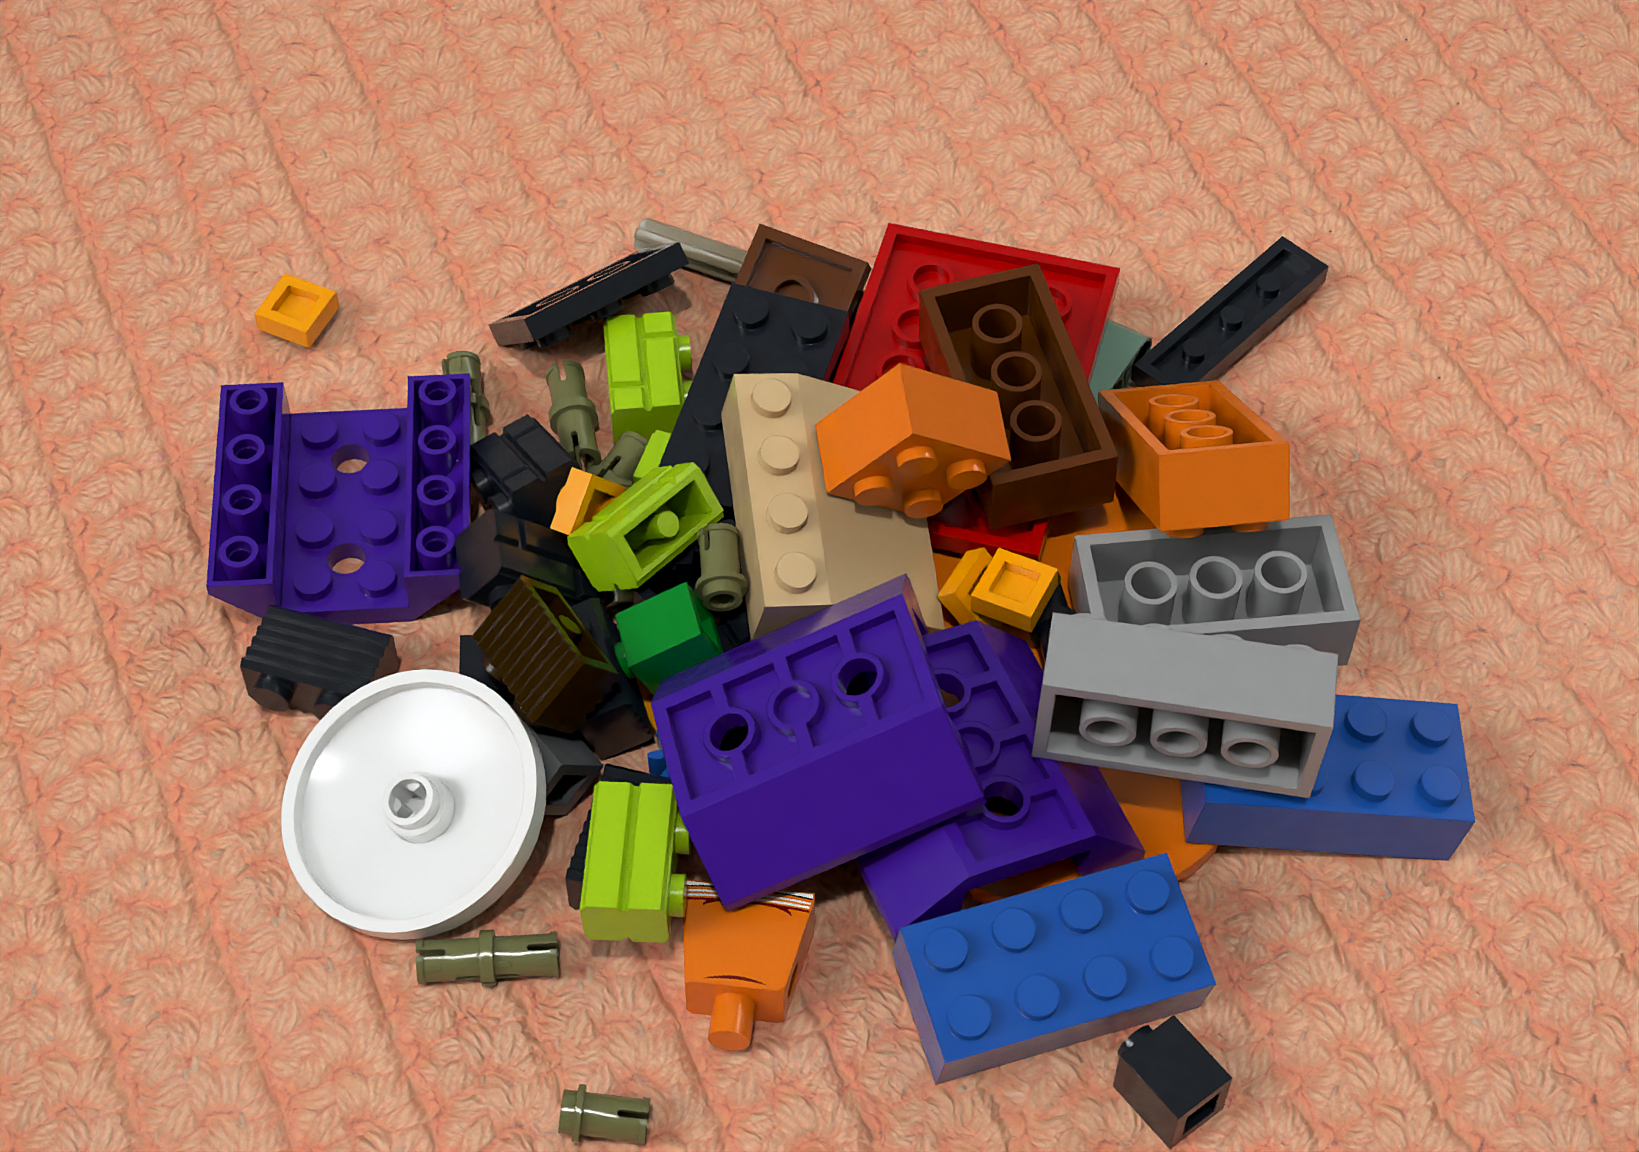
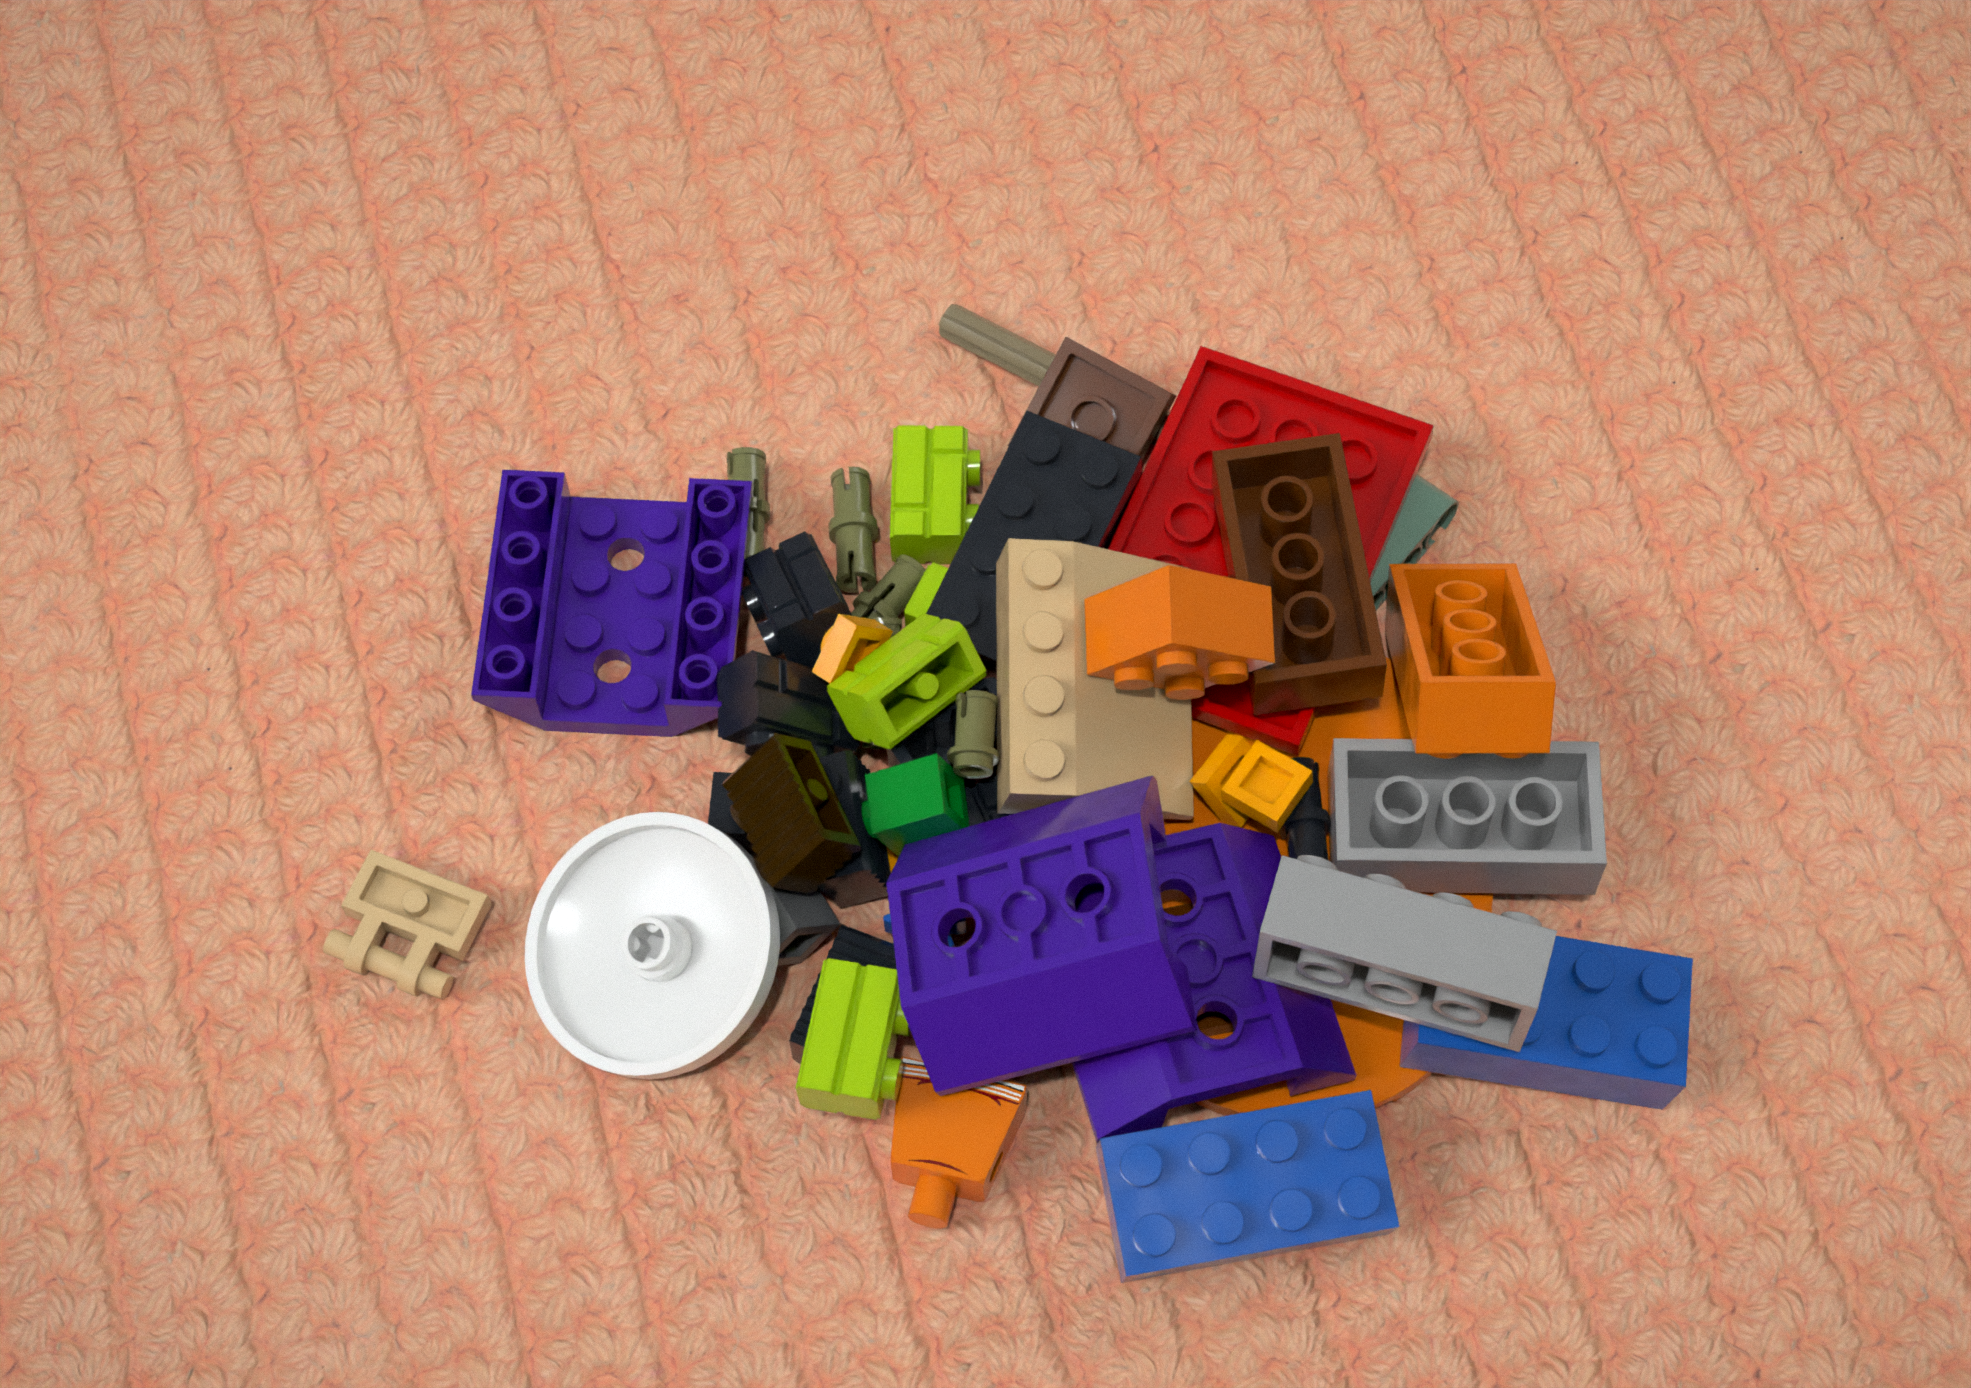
camera: 10 degrees right, 10 degrees up
(160, 797) = (416, 907): none -> tan plate
(296, 310) = (586, 377): light orange plate -> none
(312, 661) = (571, 780): black brick -> none
(487, 958) = (708, 1107): olive pin -> none
(590, 297) = (883, 397): black plate -> none
(603, 1116) = (795, 1280): olive pin -> none
(1170, 1080) = (1343, 1310): black brick -> none
(1233, 318) = (1547, 485): black plate -> none

